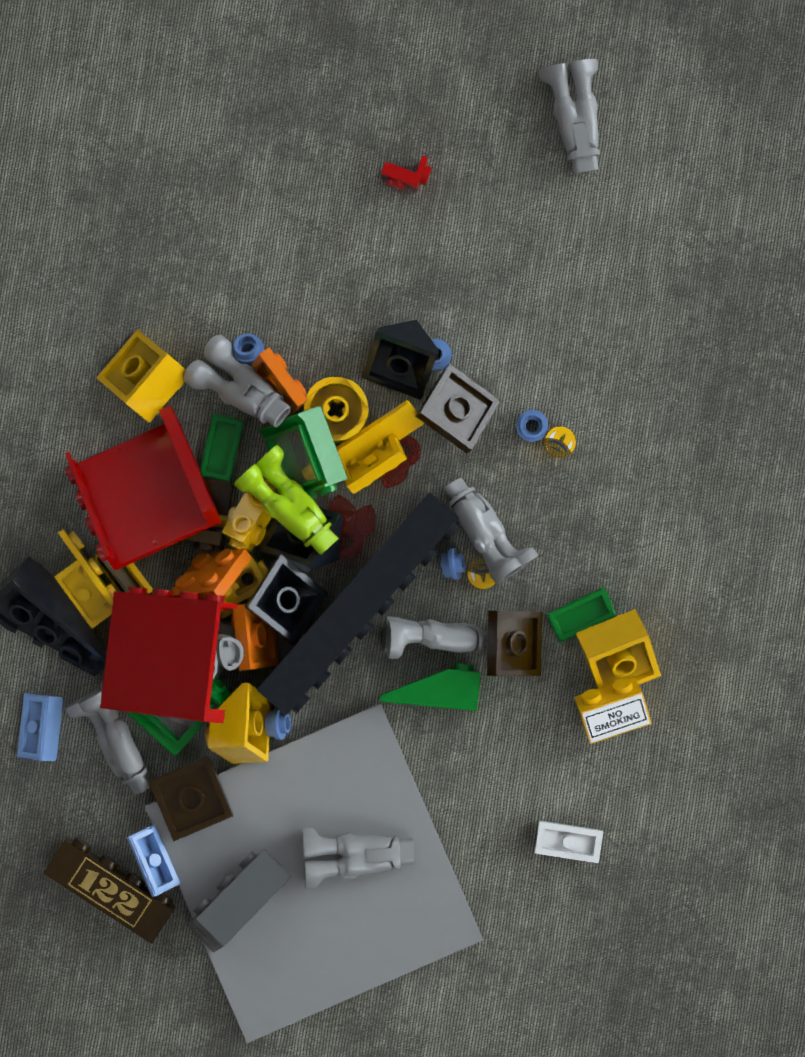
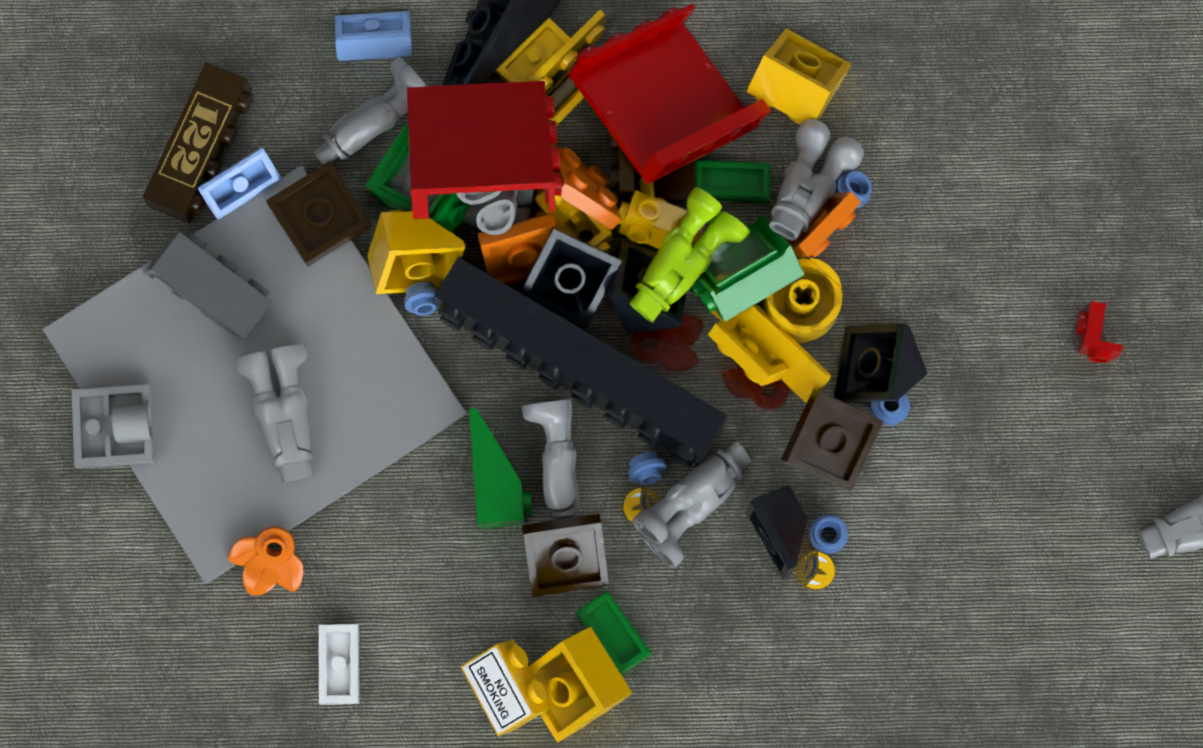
camera: 75 degrees right, 10 degrees down
(341, 996) = (112, 426): none -> light grey plate
(477, 889) = (266, 566): none -> orange plate
(522, 463) = (780, 526): none -> black slope

